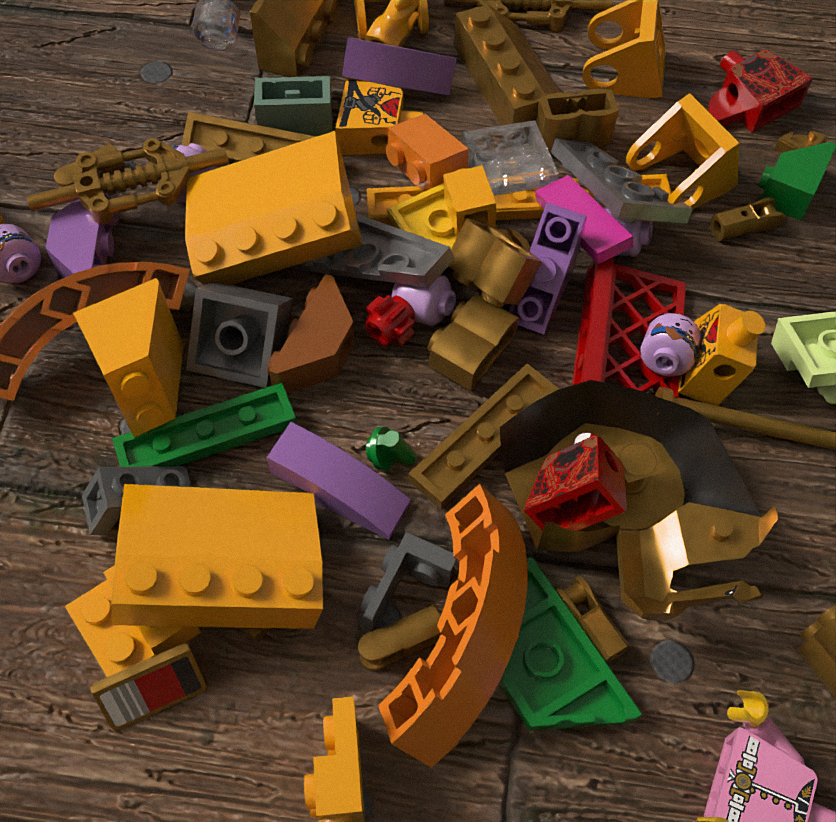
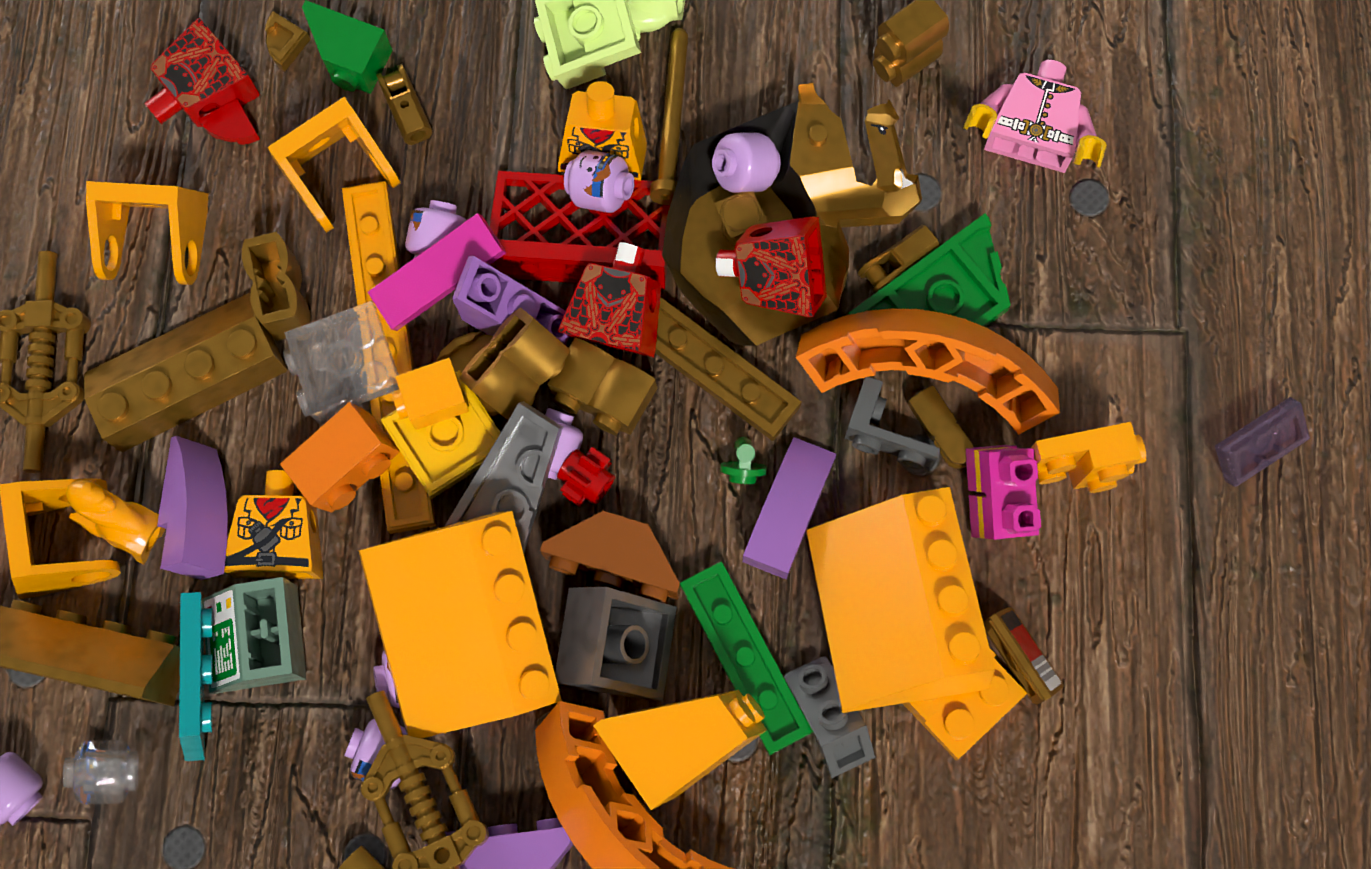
camera: 90 degrees left, 15 degrees up
(238, 138) = (329, 675): pearl gold plate -> none
(247, 57) = (195, 671): none -> teal wing
(315, 675) = (1010, 495): none -> dark pink hips
(543, 345) = (616, 304): none -> torso
(617, 186) = (386, 239): flat silver wing -> none
(691, 464) = (746, 162): none -> lavender head

